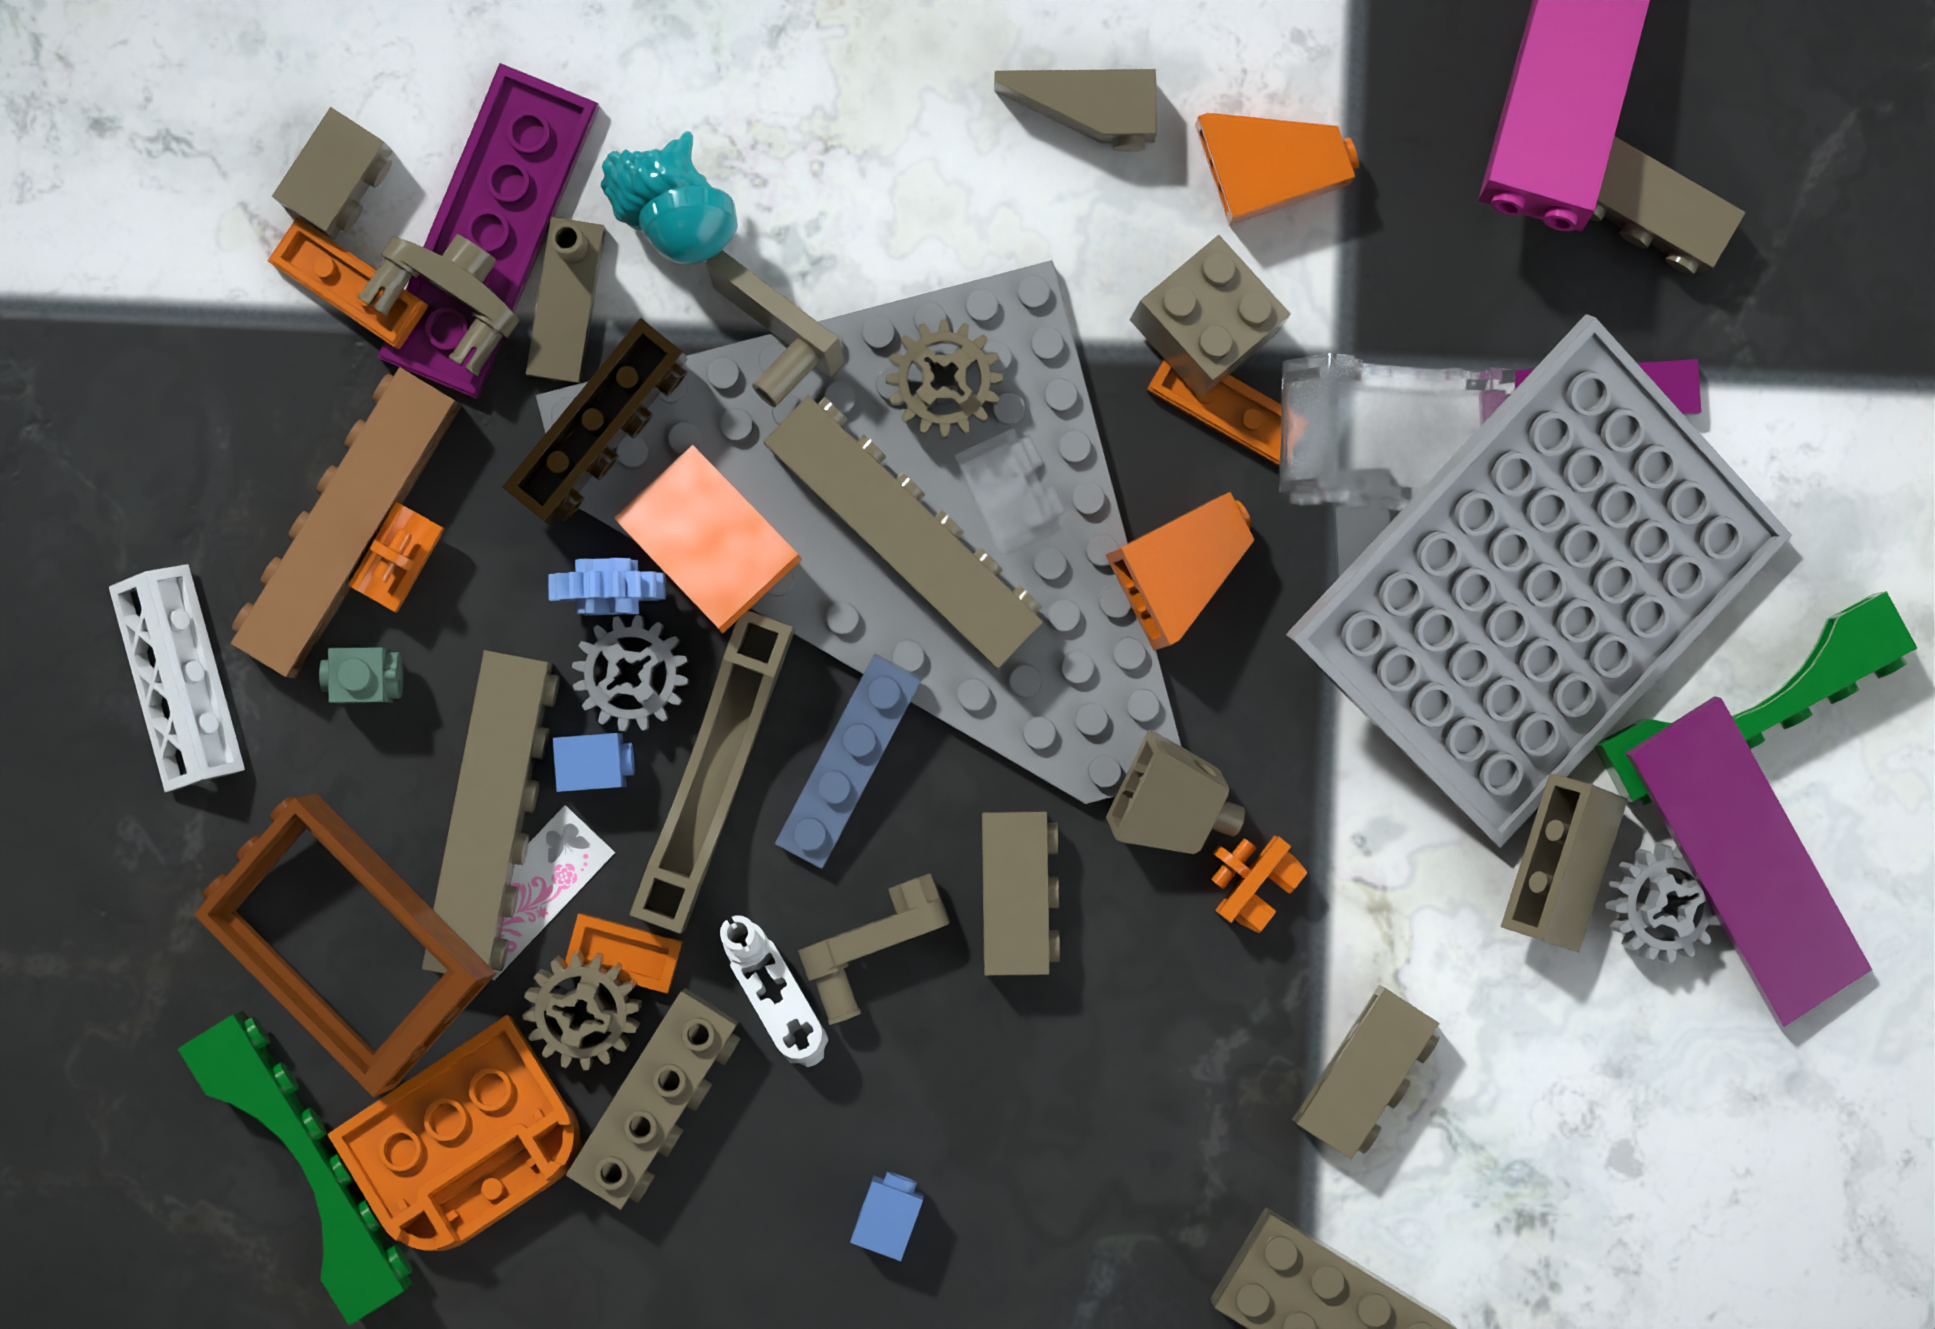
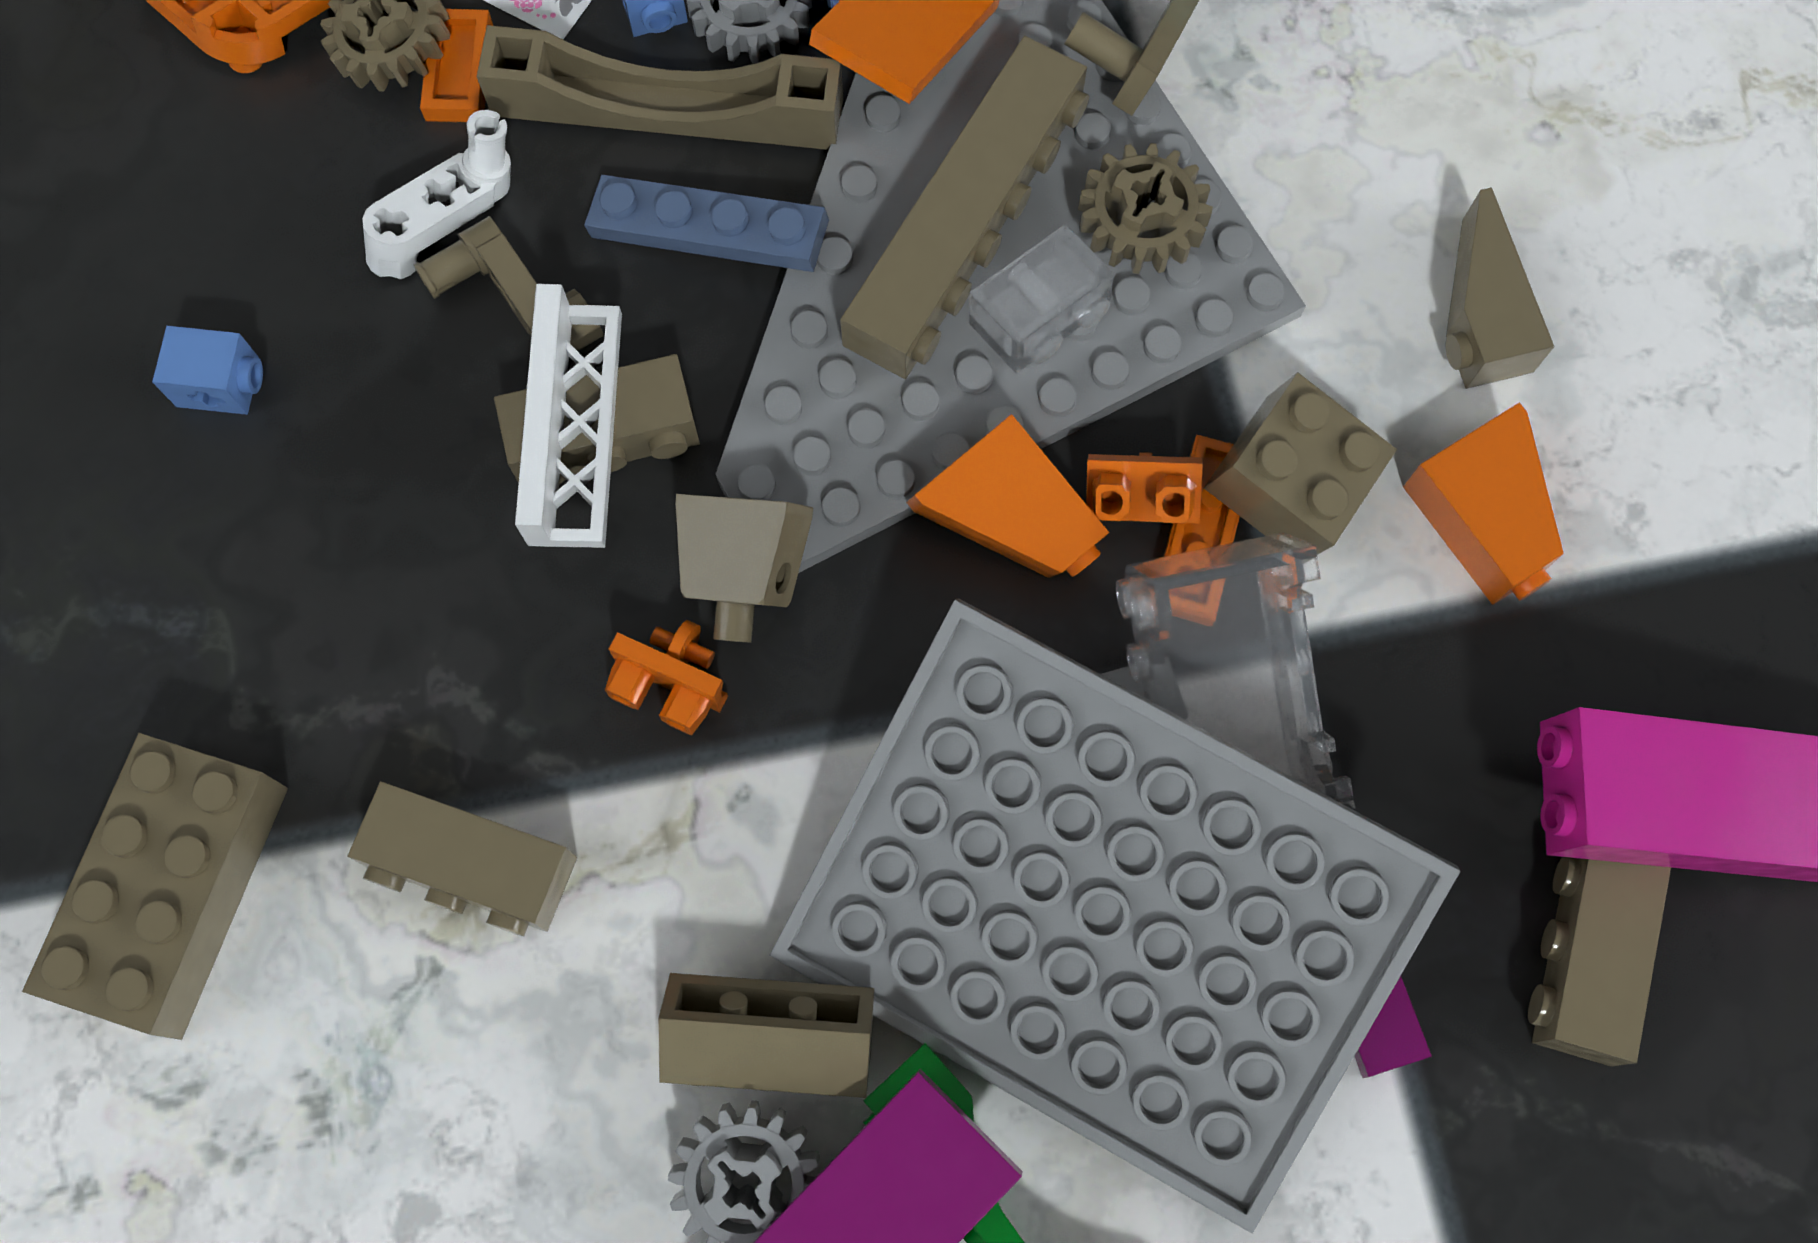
camera: 75 degrees right, 15 degrees down
(653, 1098) = (302, 115): dark tan brick -> none
(1026, 933) = (544, 420): none -> white fence
(1194, 451) = (1144, 488): none -> orange hips

